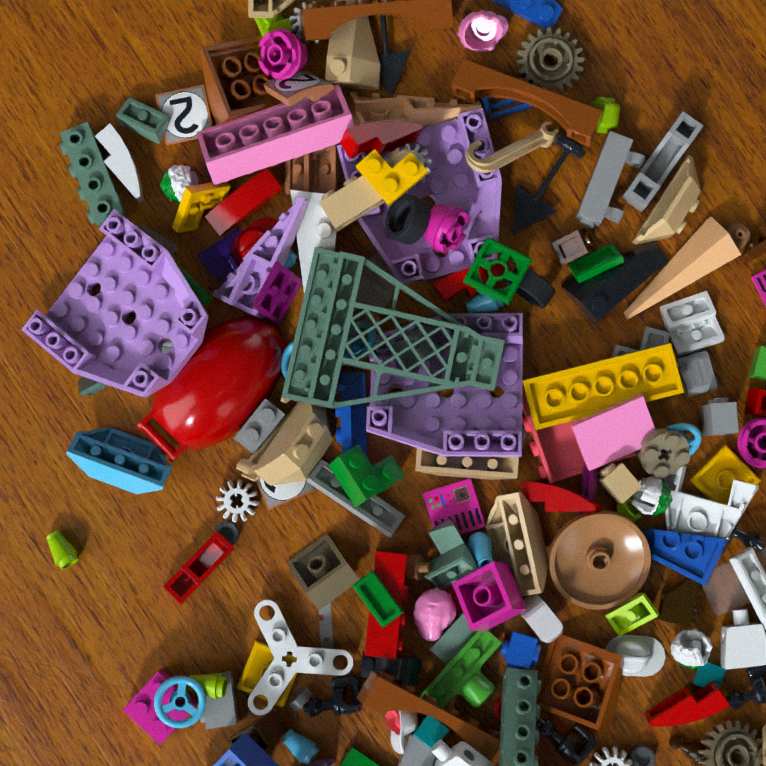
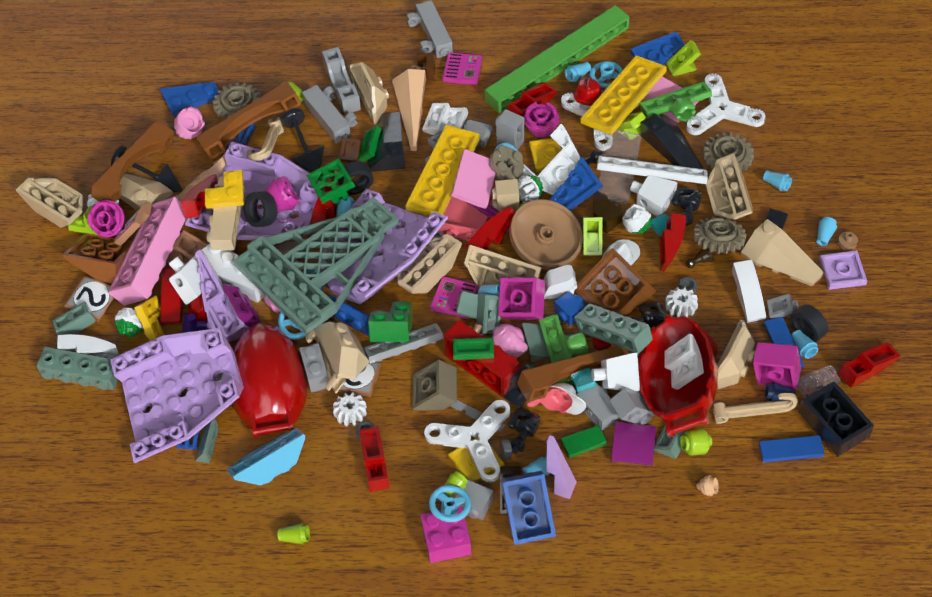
camera: 45 degrees left, 30 degrees down
(264, 208) = (186, 279): none -> white torso

